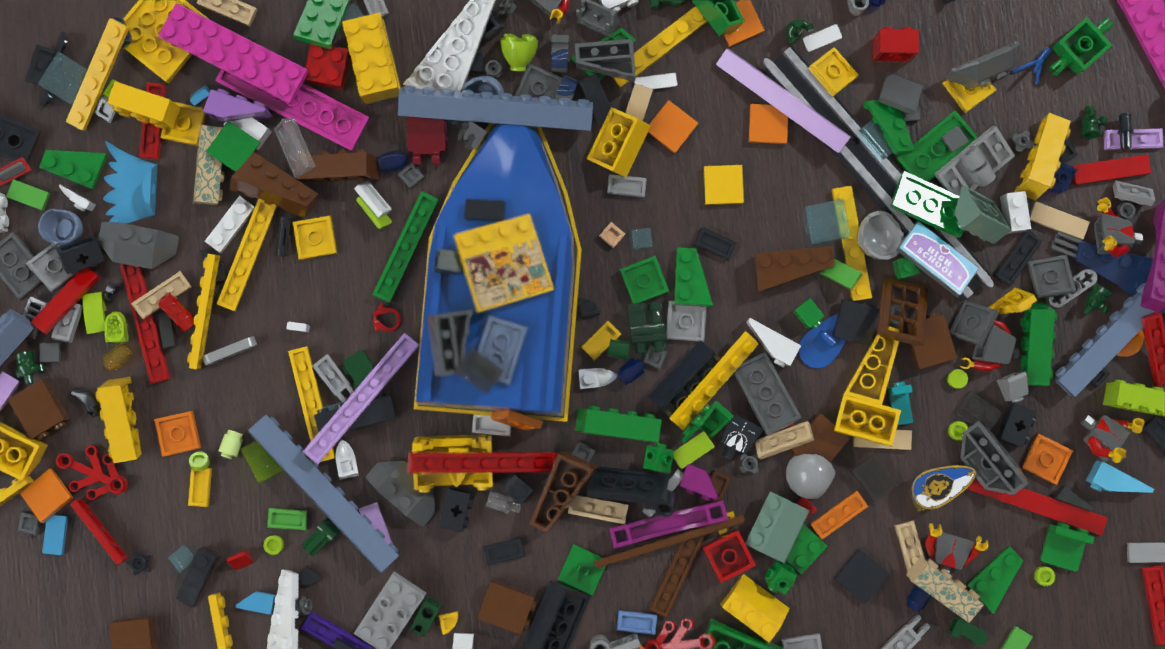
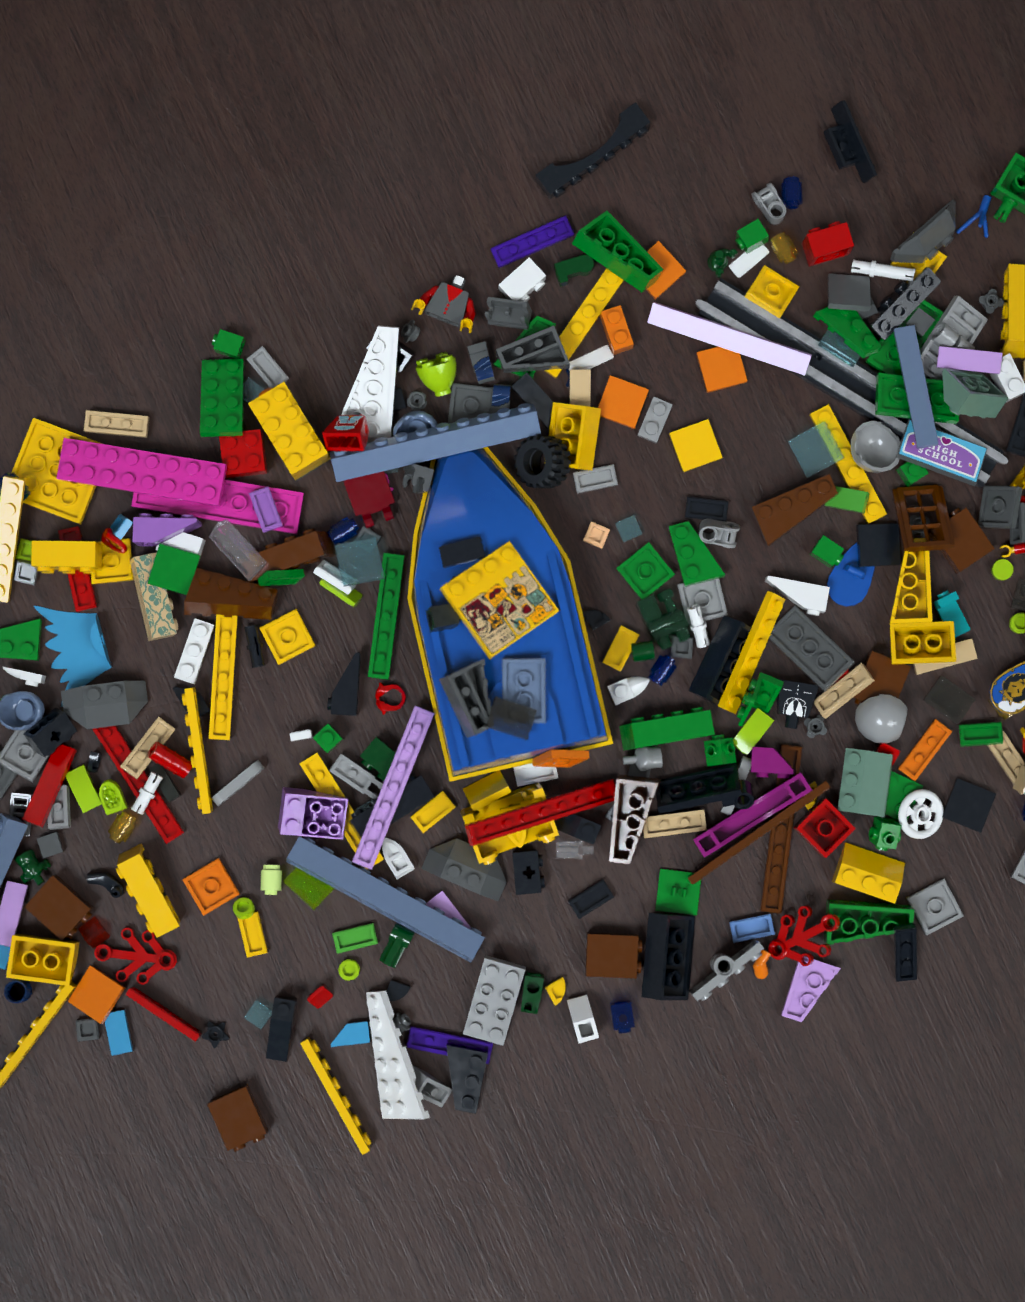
camera: 20 degrees left, 0 degrees up
(63, 441) = (94, 932): none -> clear red slope
(147, 334) = (147, 793): none -> white pin
(187, 106) = (108, 536): none -> red piece
(284, 398) = (312, 814): none -> medium lavender slope
(320, 337) = (328, 738): none -> green brick
(323, 183) = (281, 577): none -> green tile
(330, 120) = (265, 509): none -> medium lavender tile
(349, 302) = (346, 693): none -> black slope
(391, 430) = (433, 812): none -> yellow tile
(397, 192) = (359, 562): none -> clear light blue tile
(420, 75) = (347, 433): none -> red torso
(443, 427) = (486, 790): none -> yellow tile
(573, 152) = (529, 461): none -> black tyre
(591, 443) = (645, 758): none -> light grey piece
(675, 342) = (698, 626): none -> white pin
(687, 62) = (616, 330): none -> orange brick
(695, 151) = (655, 420): none -> light grey plate
(720, 268) = (720, 533): none -> light grey piece
(804, 563) = (905, 810): none -> white plate
(831, 18) = (751, 236): none -> green brick
(855, 37) = (783, 248): none -> clear yellow brick
(892, 517) = (980, 734): none -> green tile
(933, 194) = (915, 387): none -> sand blue tile
(936, 84) = (883, 270): none -> white pin
(945, 117) = (903, 302): none -> black bracket
(988, 185) = (969, 360): none -> lavender tile

